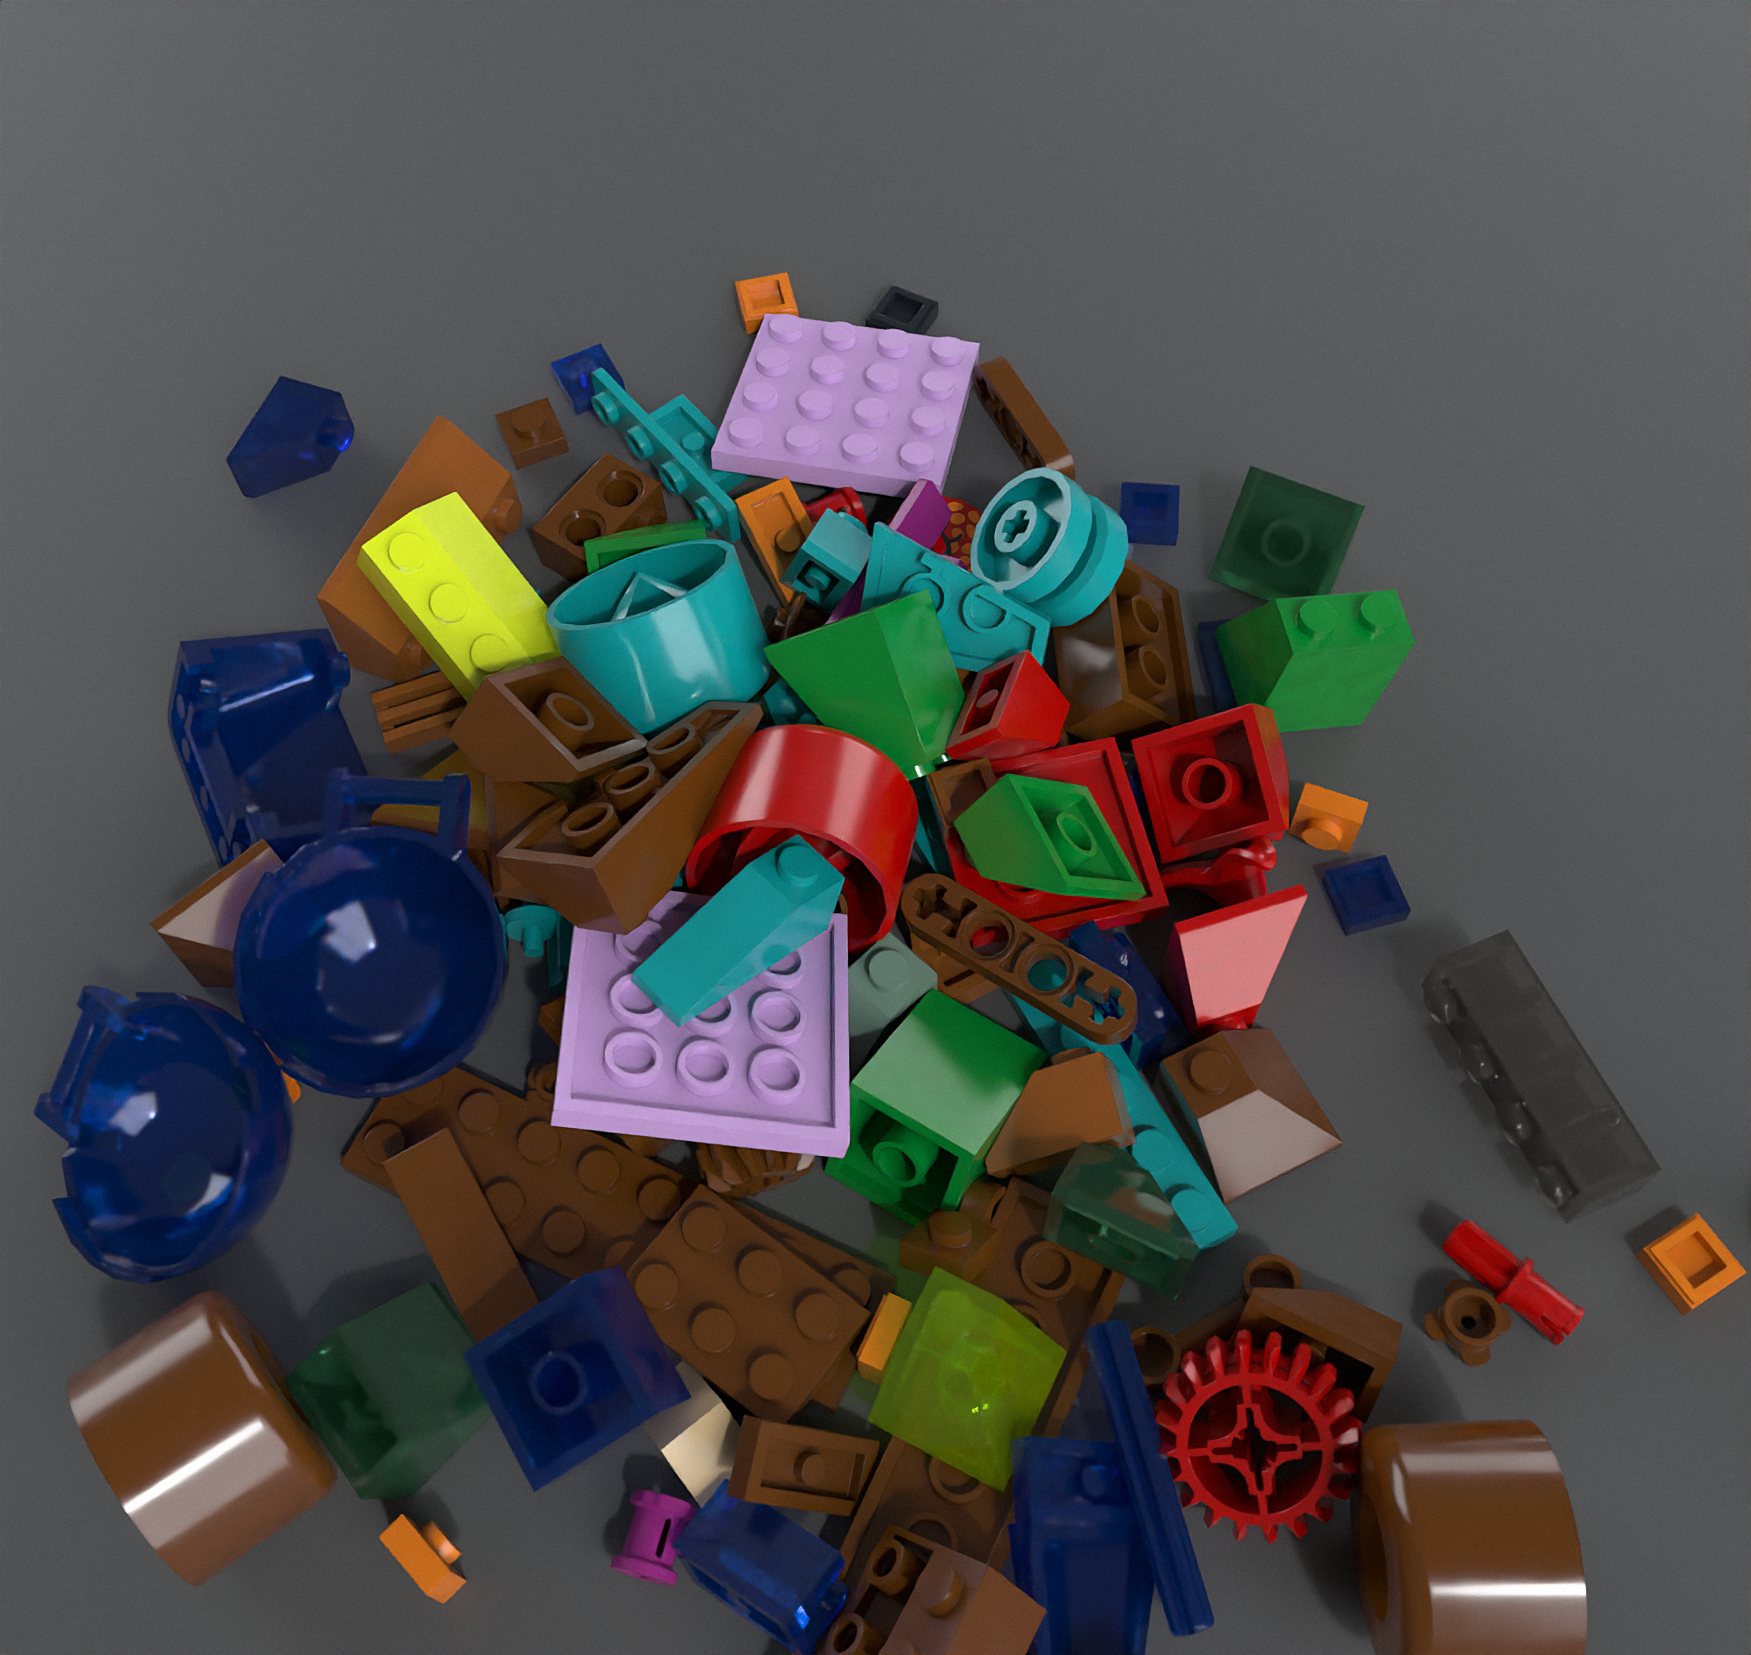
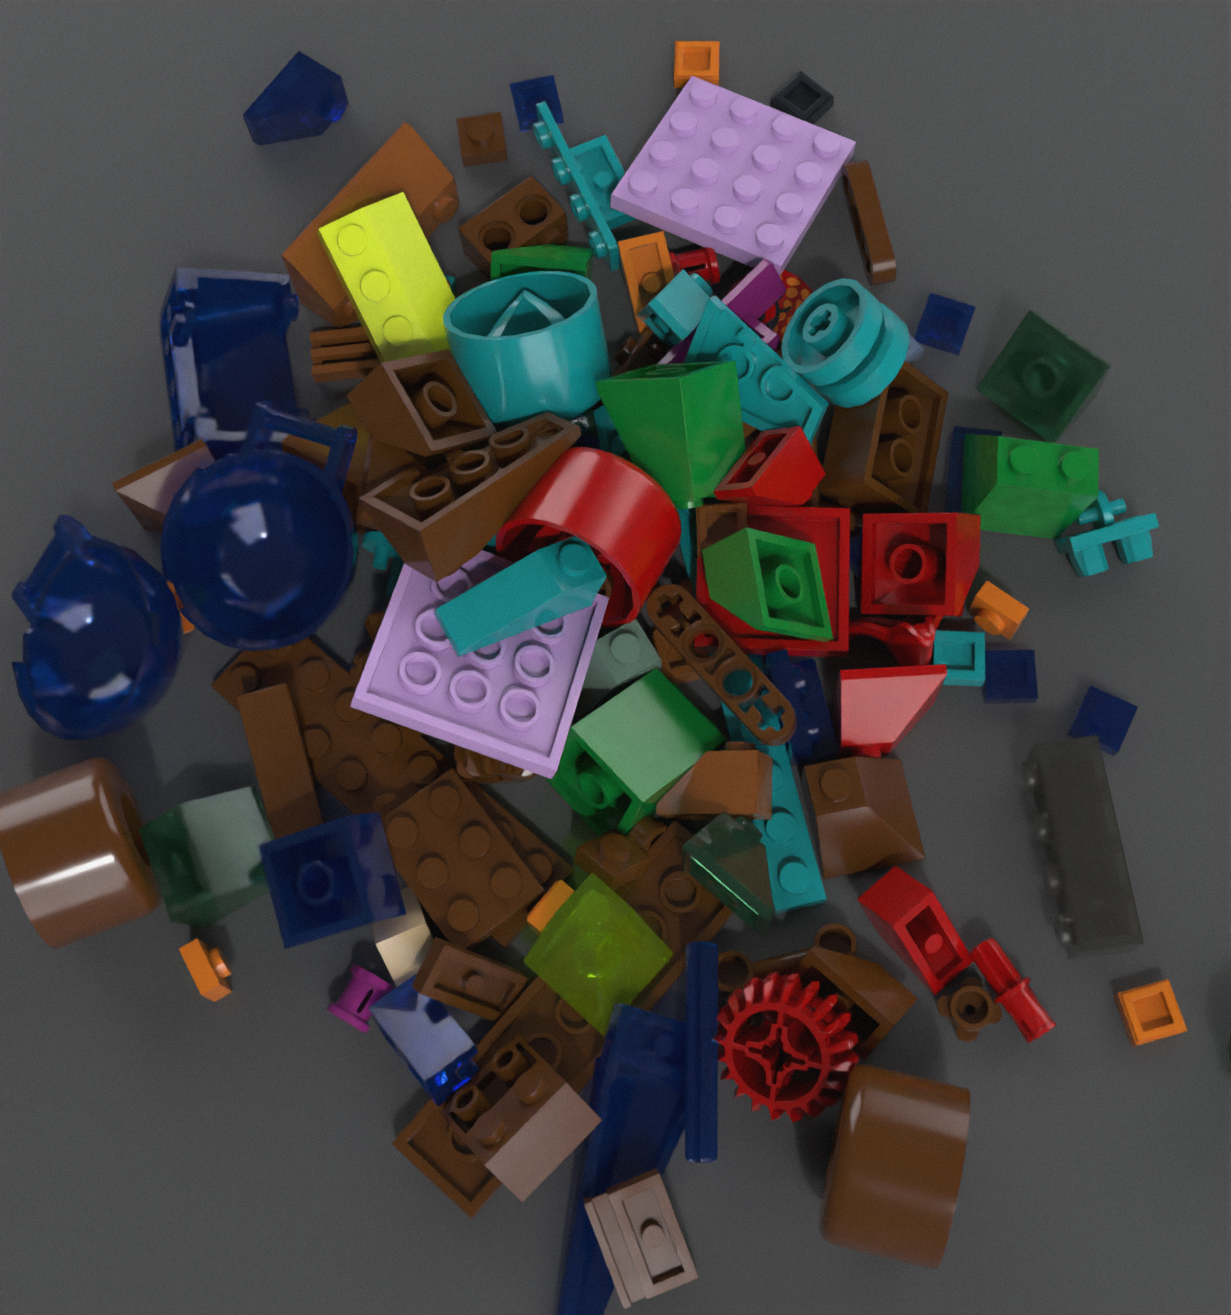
camera: 20 degrees right, 10 degrees up
(1311, 870) = (963, 657): none -> teal plate
(1365, 1233) = (916, 928): none -> red slope
(1449, 696) = (1130, 535): none -> teal hips
(1493, 909) = (1103, 716): none -> clear blue plate

